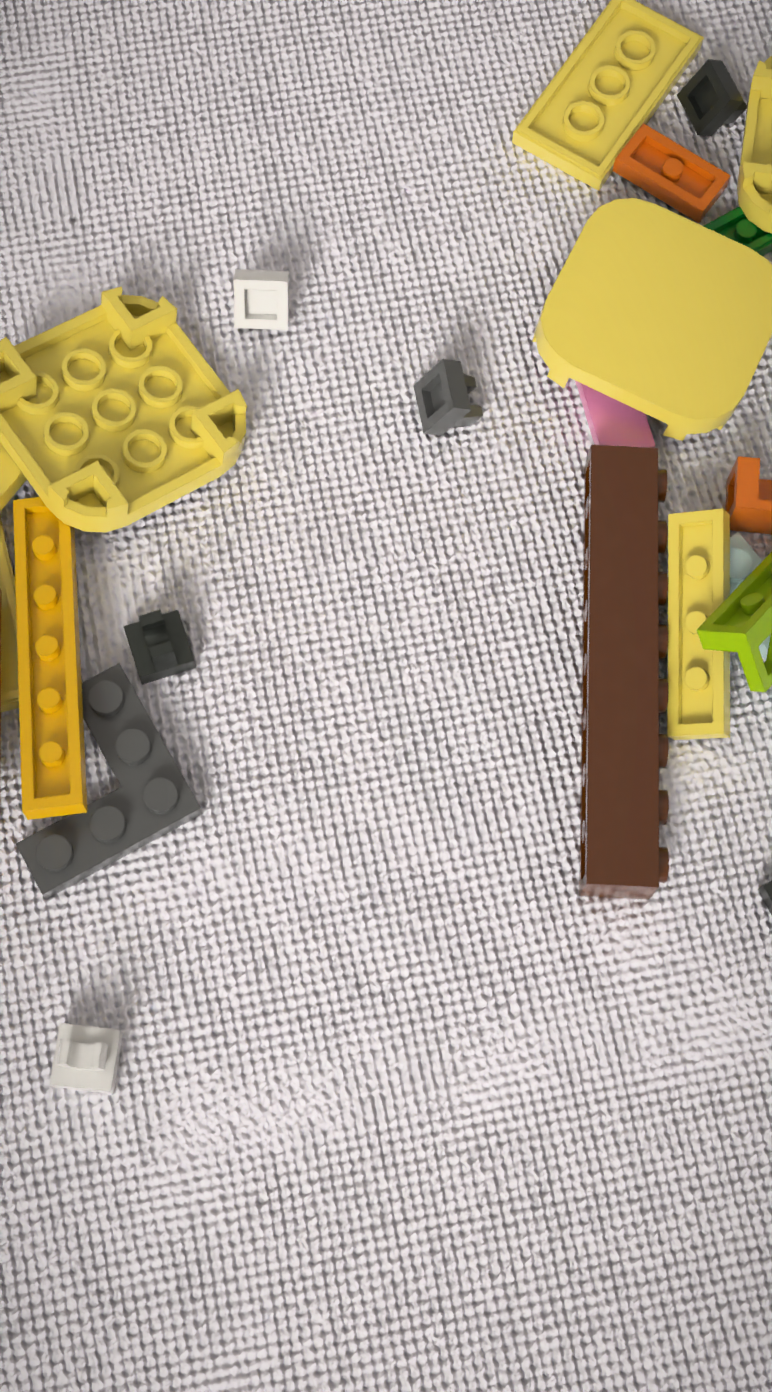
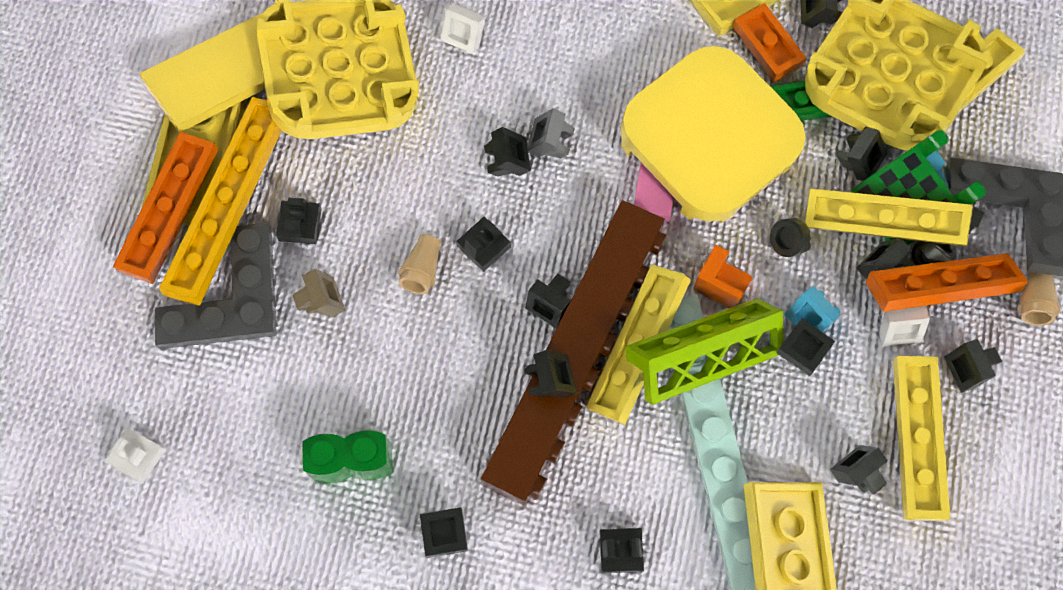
camera: 30 degrees right, 0 degrees up
(241, 733) = (319, 294): none -> dark tan tile
(360, 640) = (420, 266): none -> tan cone
(406, 925) = (336, 459): none -> green brick
(407, 439) = (509, 153): none -> pearl dark grey tile
(427, 576) = (483, 244): none -> pearl dark grey tile
(554, 616) = (549, 300): none -> pearl dark grey tile
(569, 975) = (443, 532): none -> pearl dark grey tile
(623, 704) = (553, 375): none -> pearl dark grey tile

